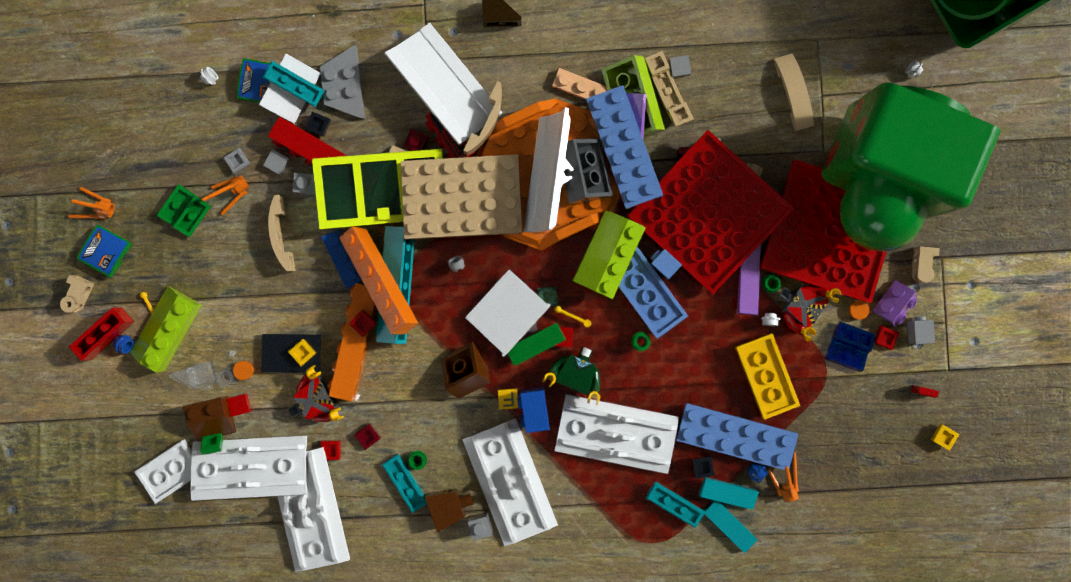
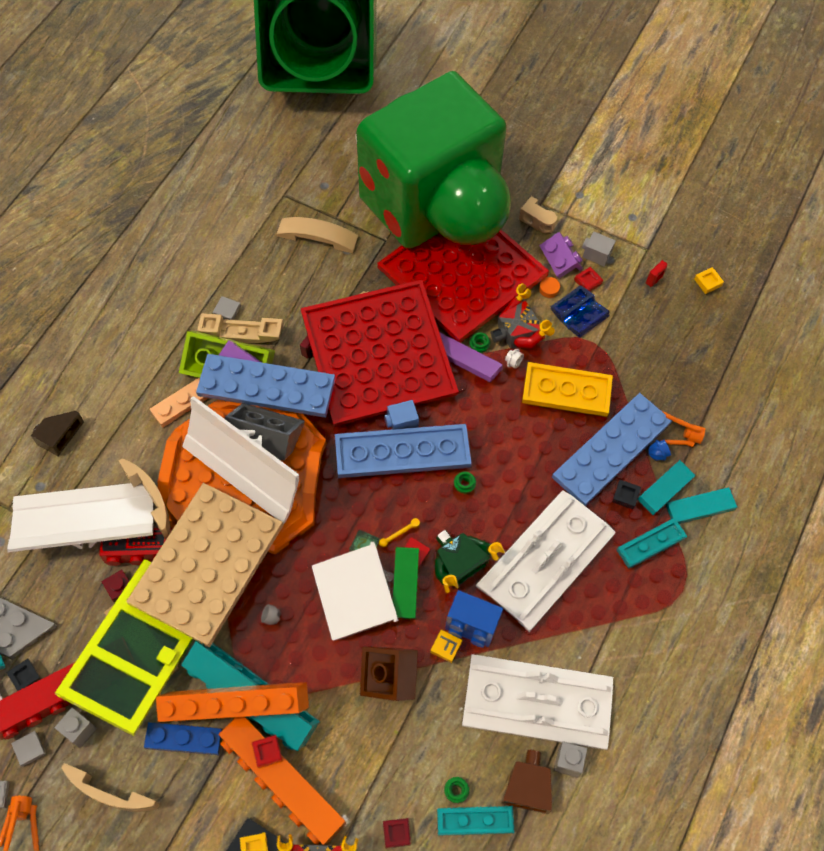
camera: 60 degrees left, 25 degrees down
(609, 254) = (360, 456): lime slope -> none

